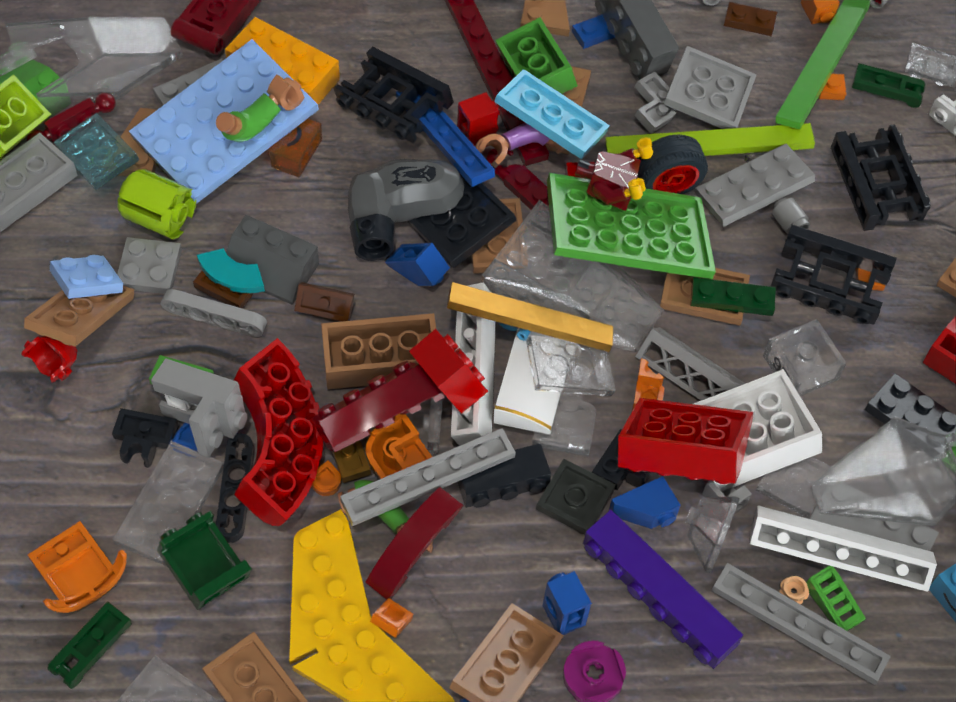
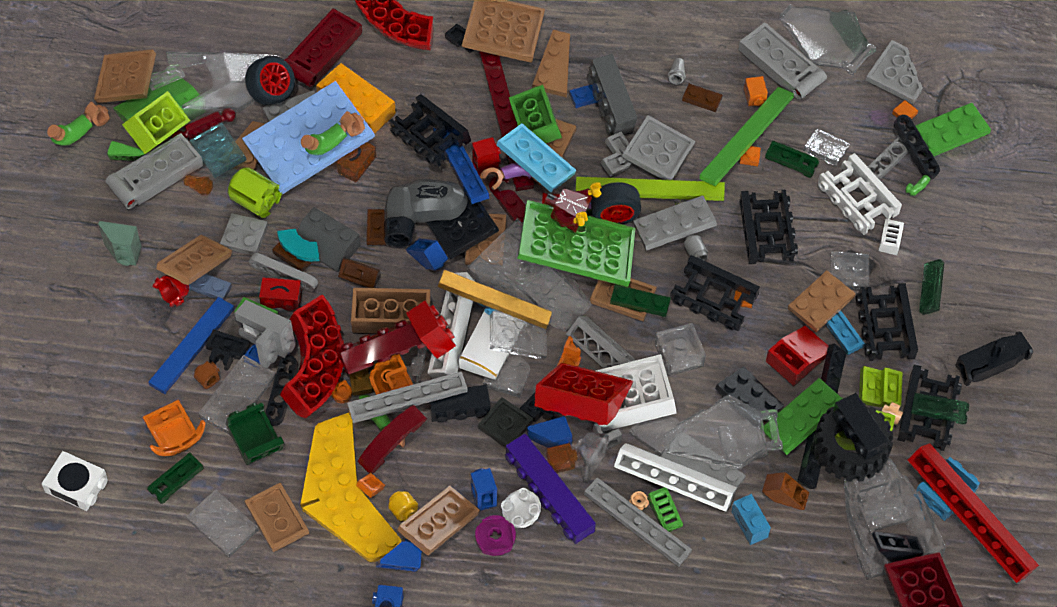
camera: 10 degrees right, 0 degrees up
(75, 201) = (200, 184): none -> clear orange cone
(86, 276) = (201, 238): light blue plate -> none
(89, 437) = (191, 345): none -> blue tile
(110, 346) = (211, 286): none -> sand blue plate
(119, 477) = (207, 374): none -> dark orange plate
(158, 48) = (269, 80): none -> wheel
(214, 344) = (280, 293): none -> red brick
(338, 235) = (375, 227): none -> reddish brown plate
(447, 644) = (402, 505): none -> yellow head
(625, 624) = (521, 508): none -> white dish
(669, 538) = (562, 457): none -> clear orange brick

